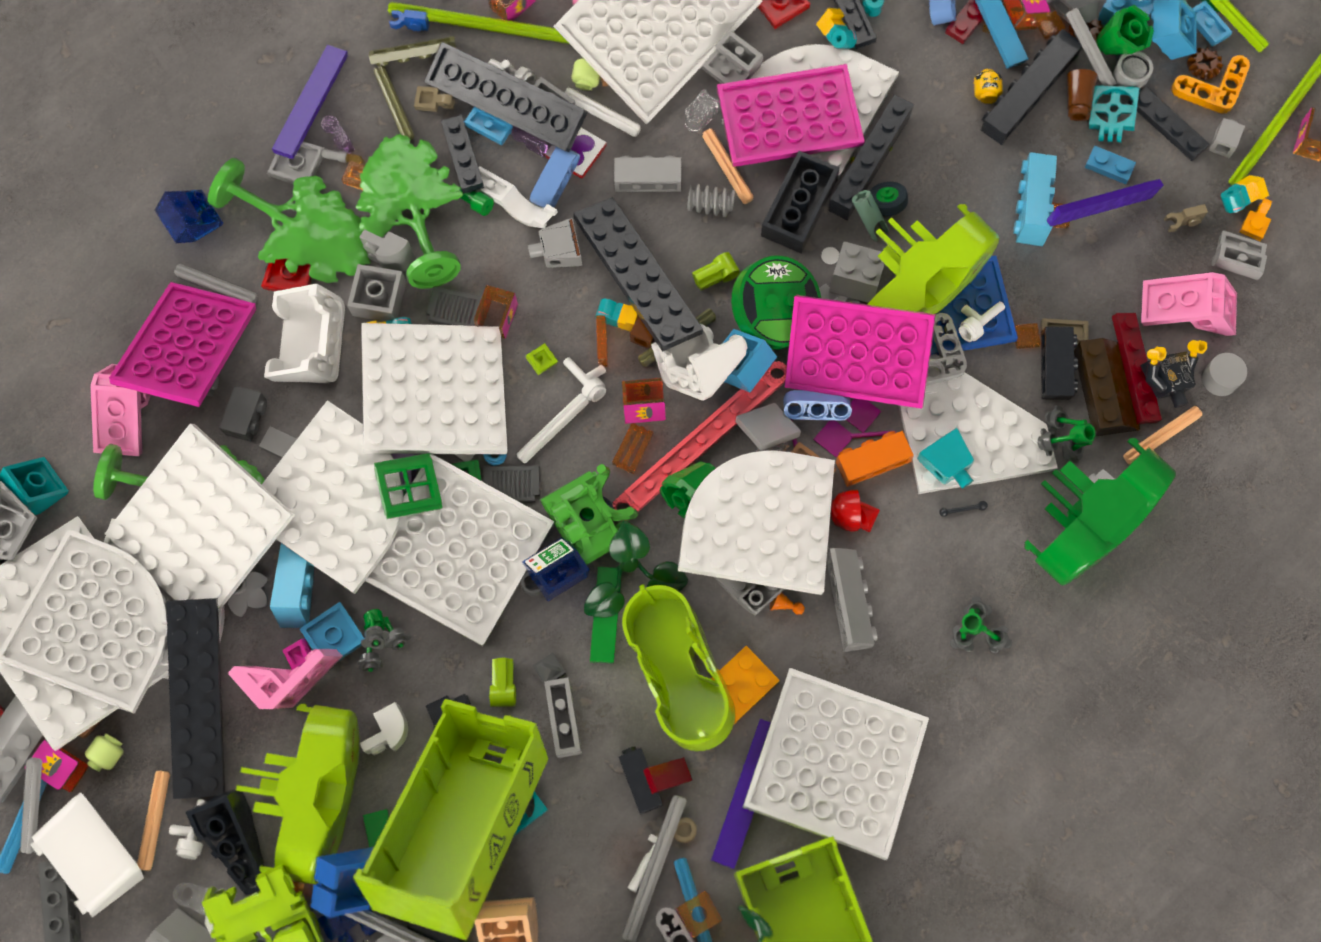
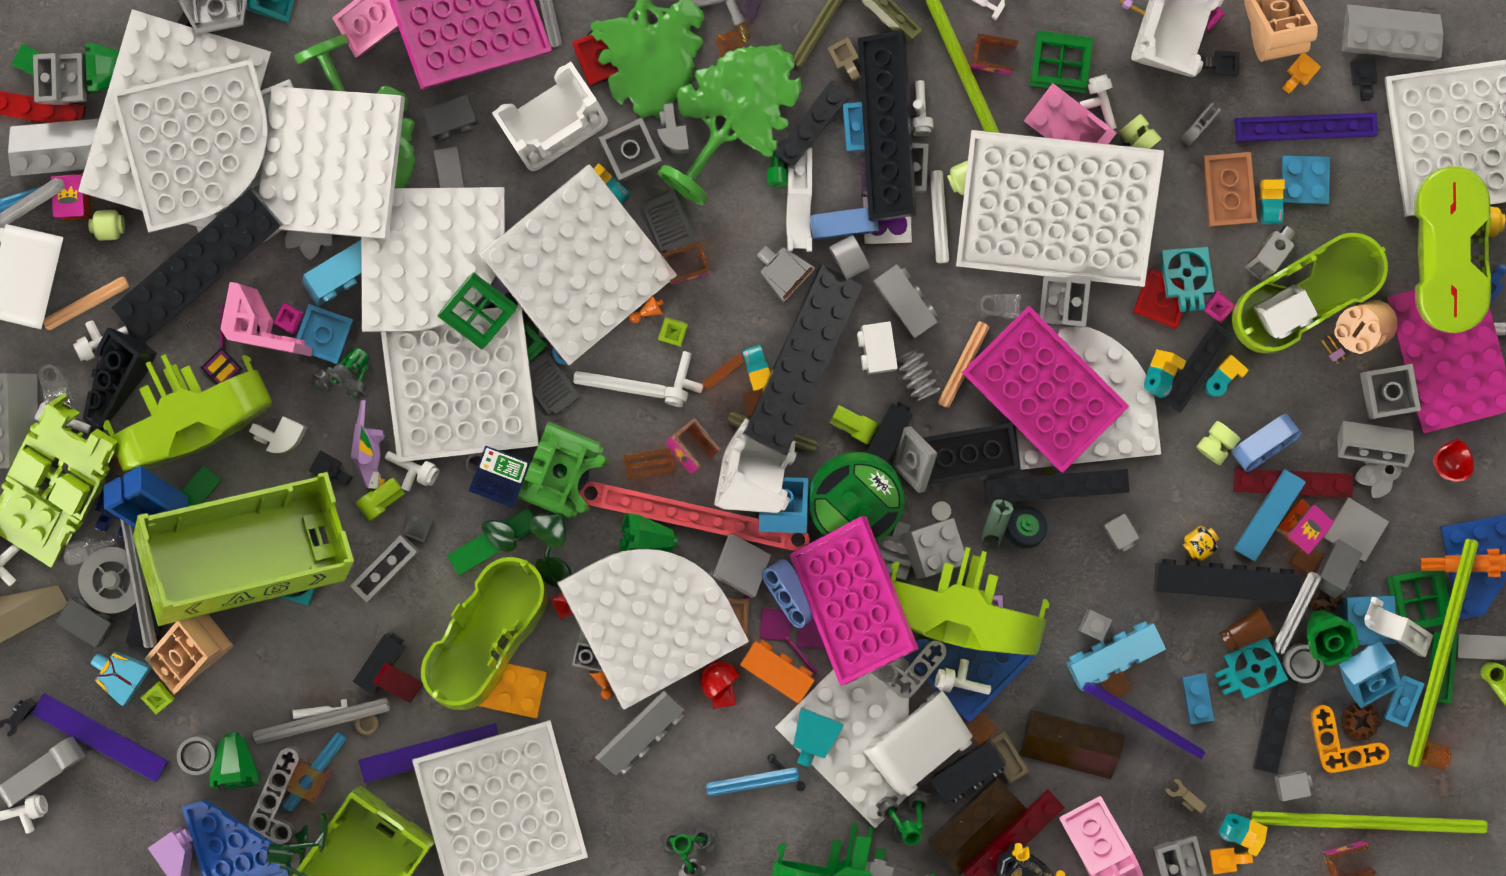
camera: 50 degrees right, 15 degrees up
(289, 737) = (221, 364): none -> piece
(454, 666) = (366, 451): none -> lavender animal
(509, 628) = (426, 474): none -> white piece
(510, 364) = (650, 308): none -> orange piece
(583, 189) = (849, 257): none -> light grey piece
(669, 211) = (878, 348): none -> white piece
(700, 591) = (561, 606): none -> red tile
(739, 244) = (890, 431): none -> black brick
(776, 236) = (914, 459): none -> light grey tile
(918, 26) = (1218, 443): none -> yellowish green wheel
(939, 135) = (1121, 532): none -> light grey brick
(953, 539) = (752, 781): none -> dark azure axle
(1001, 197) = (1094, 625): none -> light grey brick
(1010, 384) = (919, 744): none -> white windscreen
(1086, 274) = (1072, 744): none -> dark brown slope
(1271, 20) = (1436, 755): none -> clear orange brick

